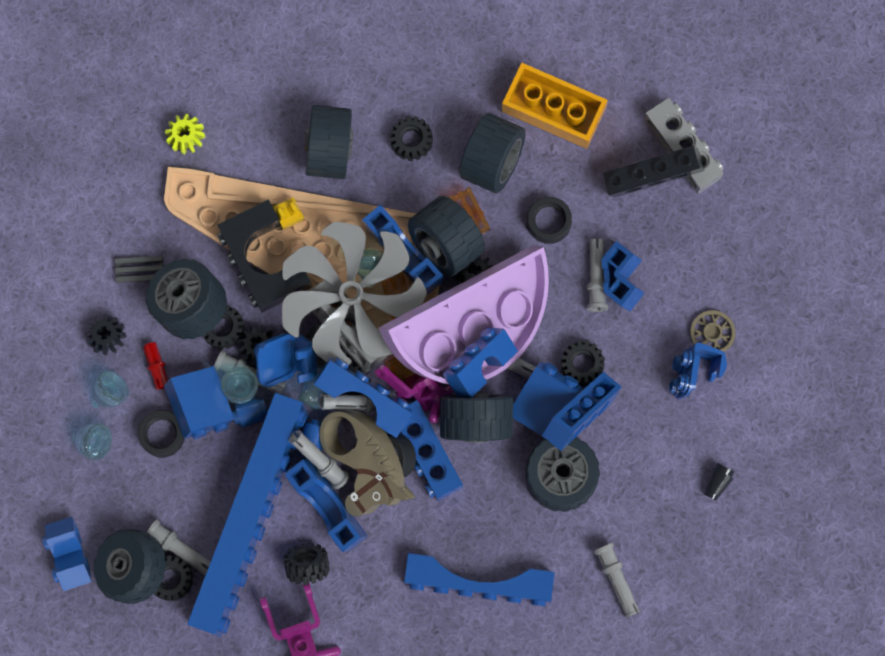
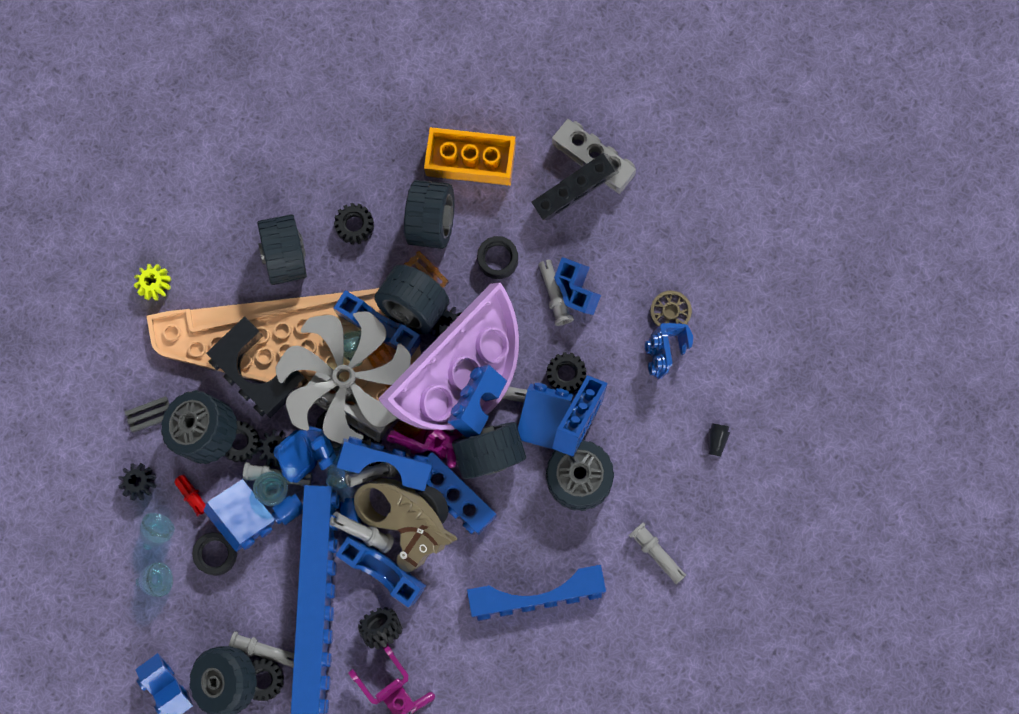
camera: 15 degrees left, 0 degrees up
(288, 213) = (266, 323): yellow tile -> none

